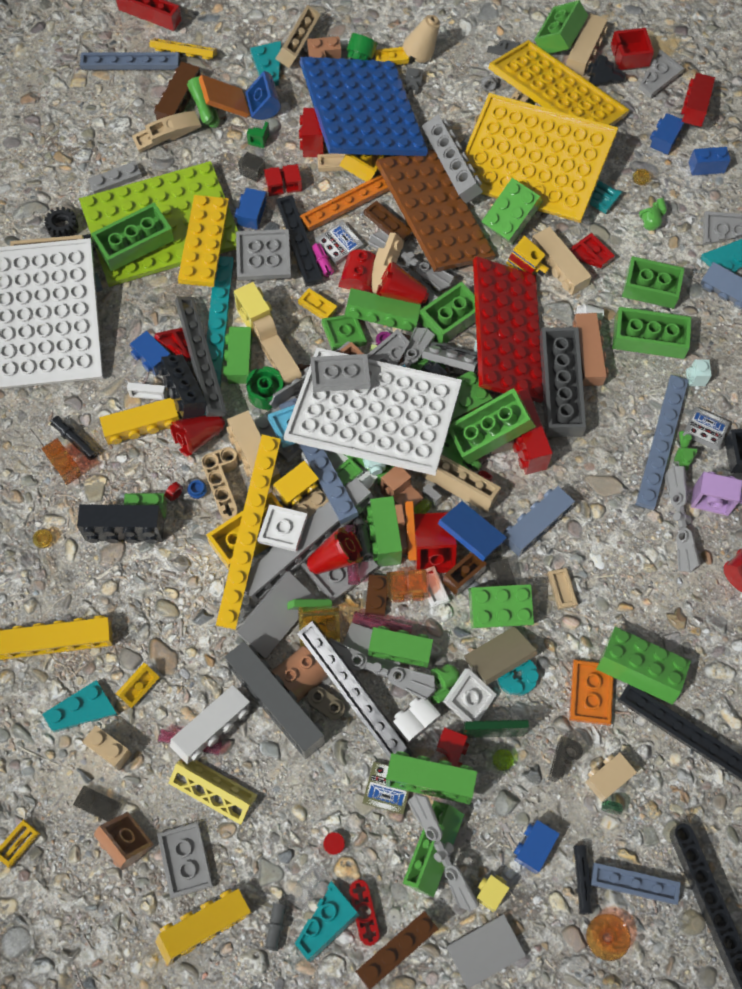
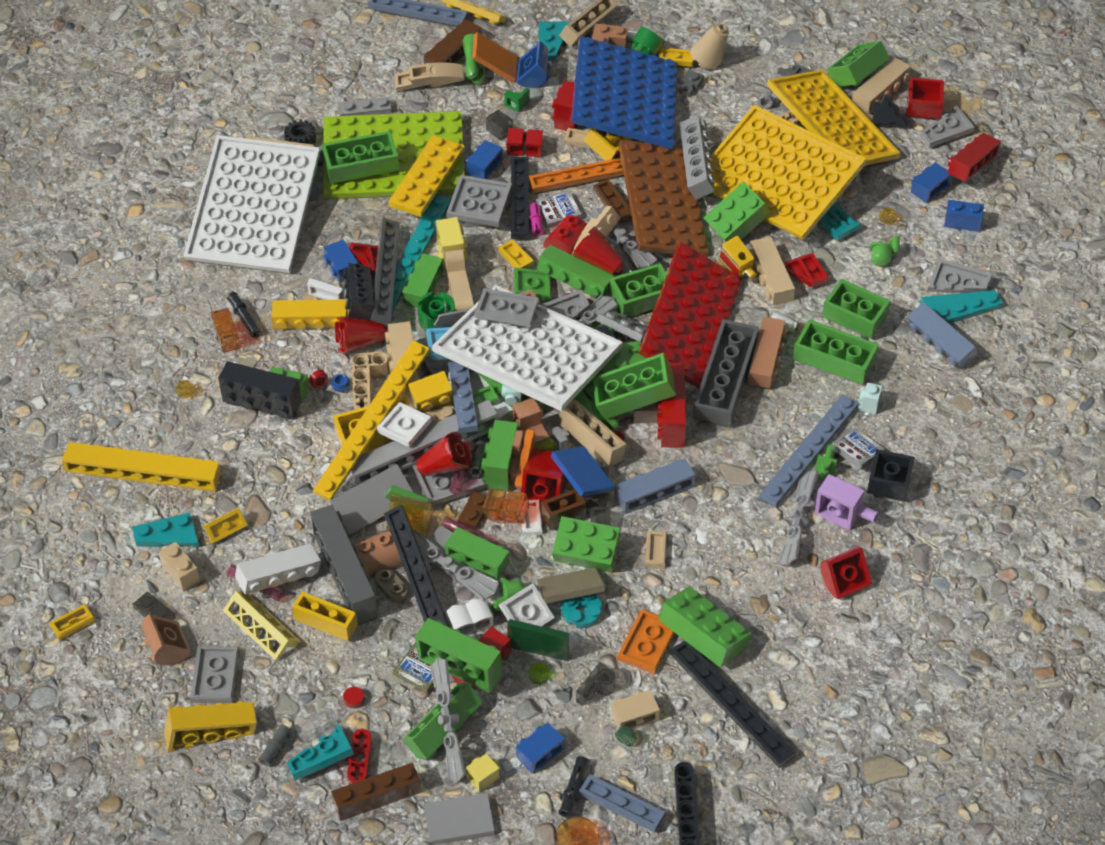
camera: 20 degrees right, 15 degrees down
(275, 763) = (325, 616): none -> yellow brick

